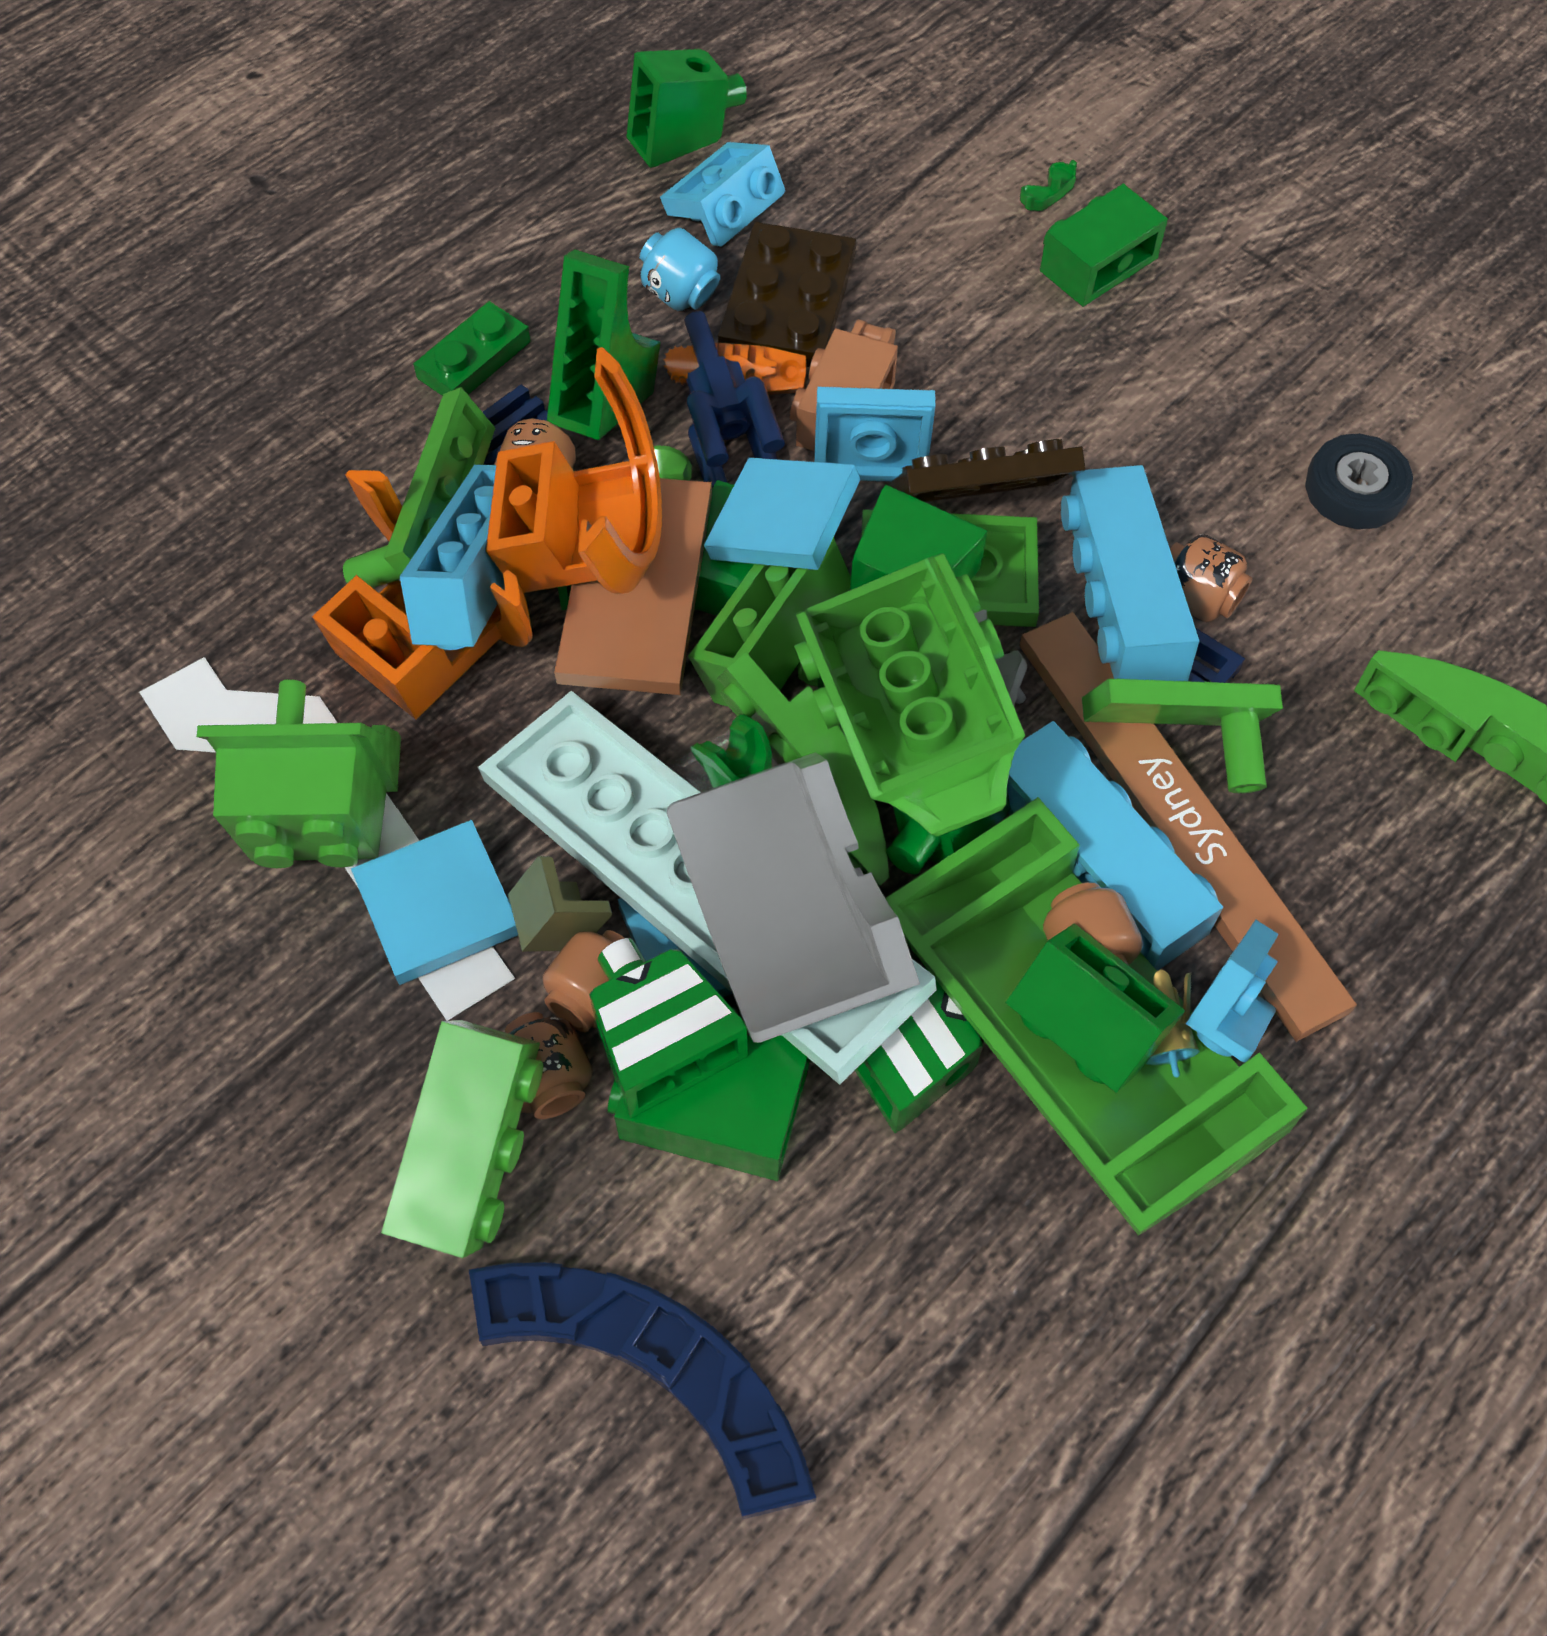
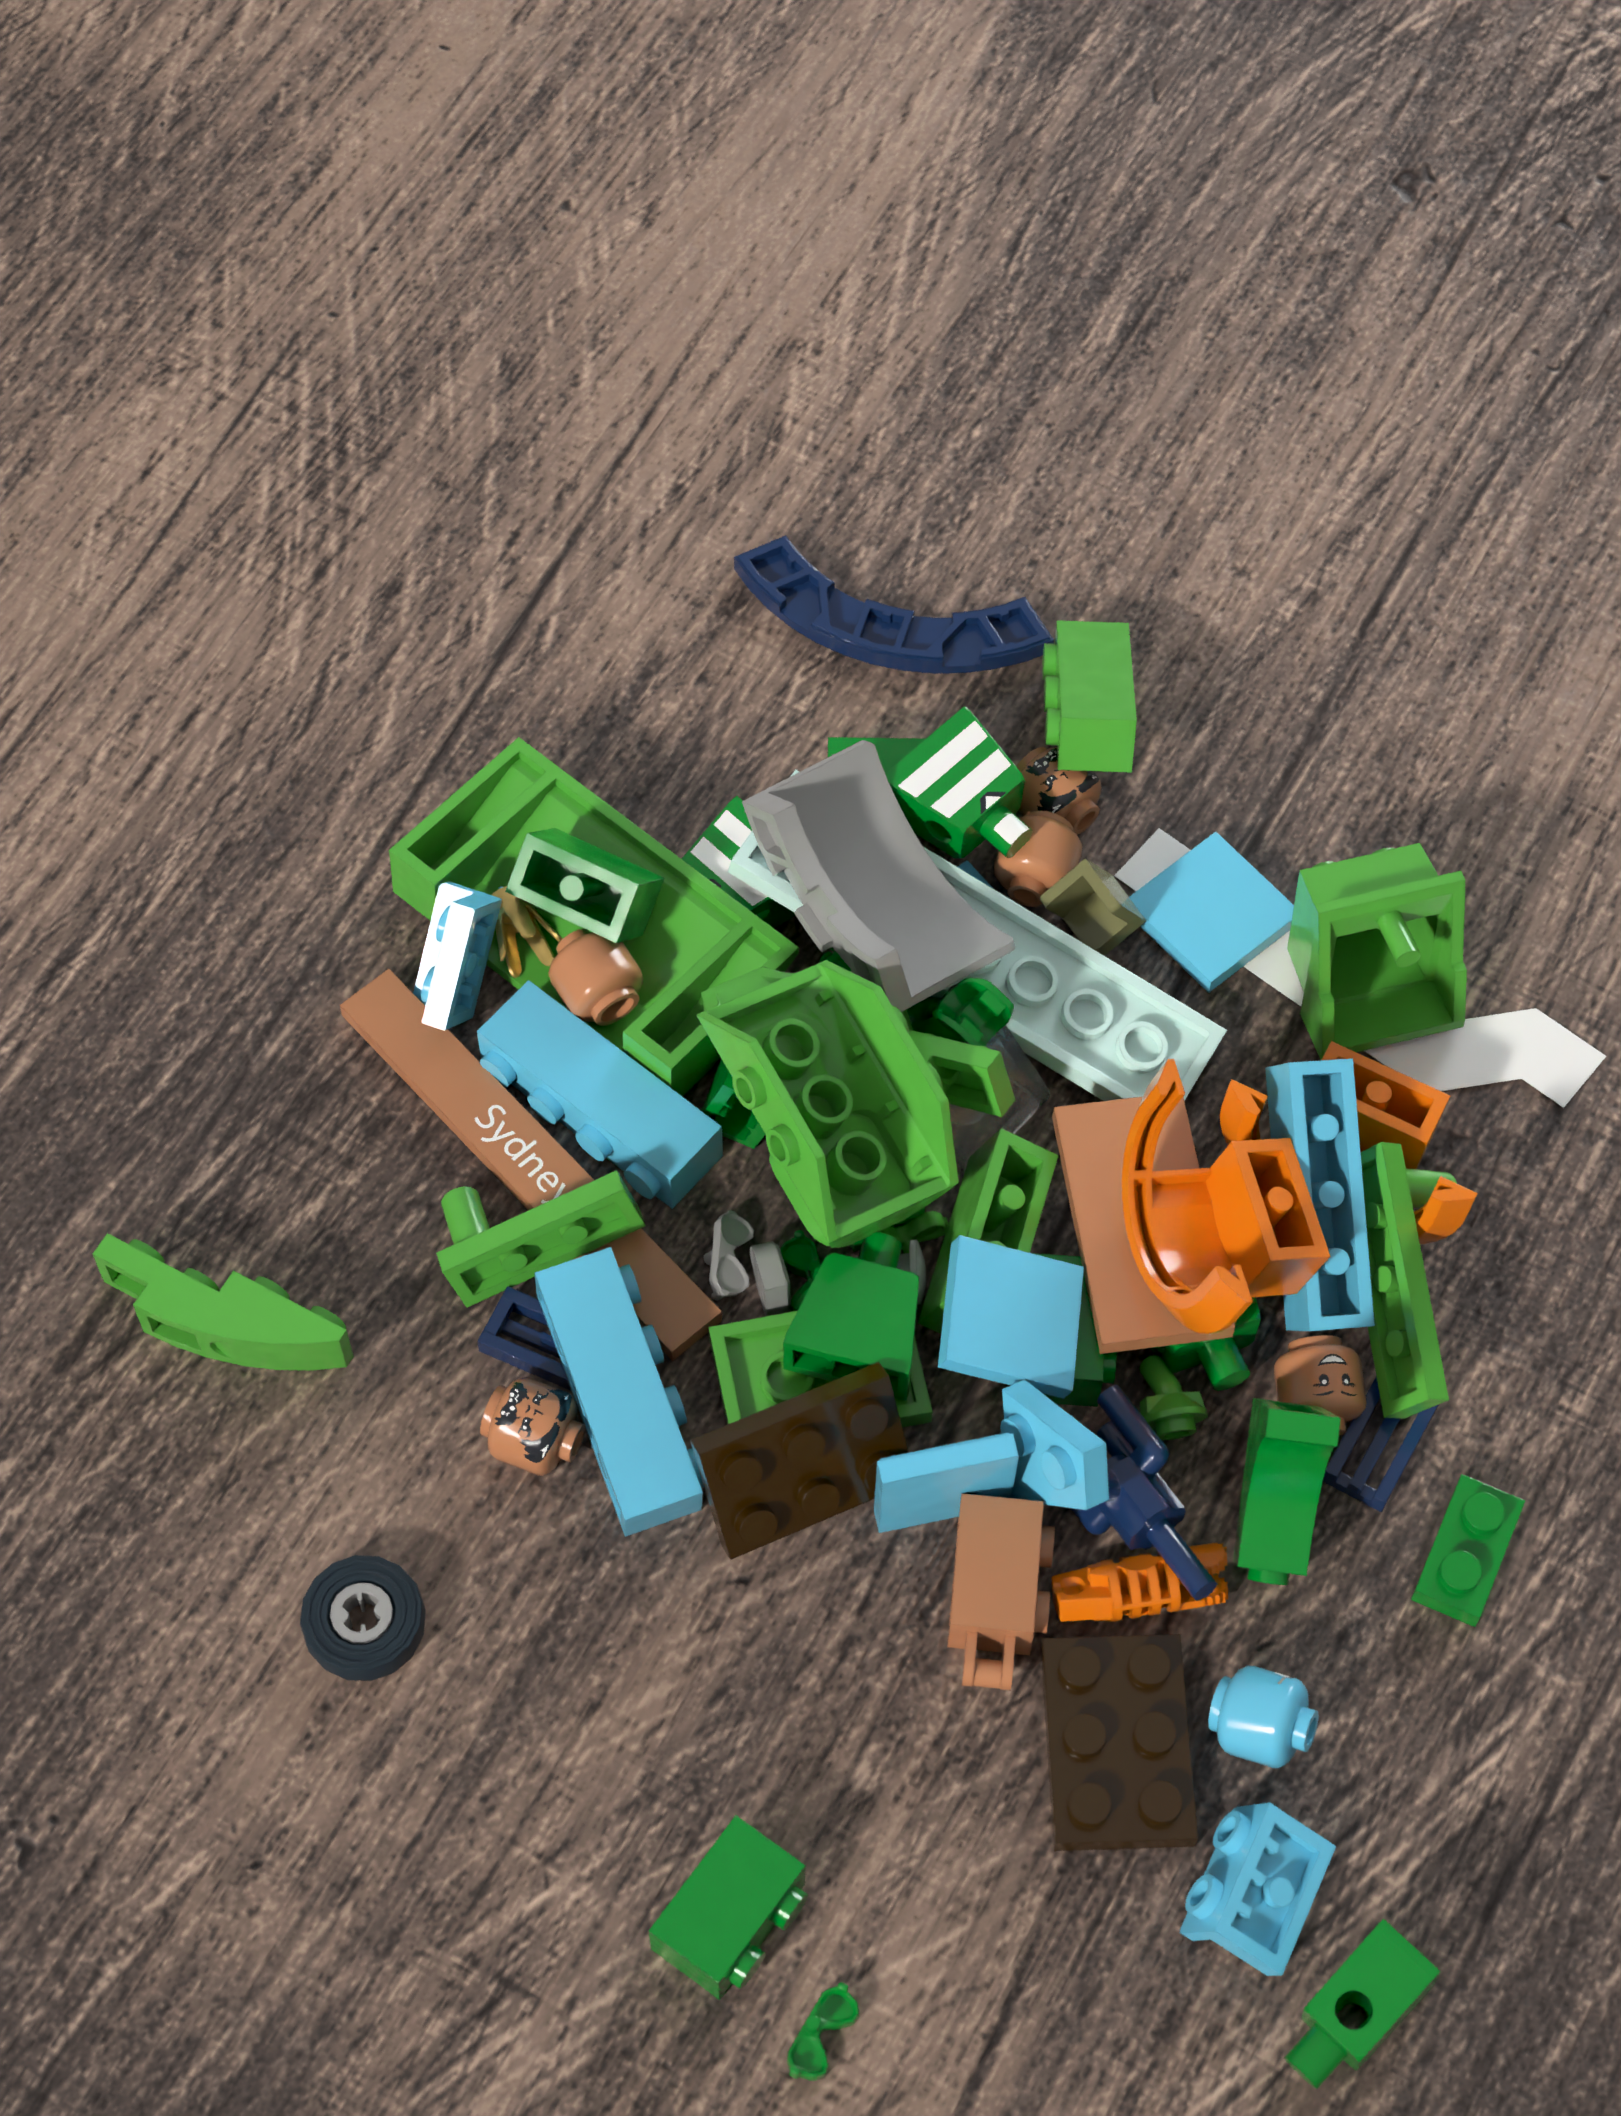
camera: 165 degrees right, 0 degrees up
(777, 377) = (1057, 1454): none -> medium azure wing

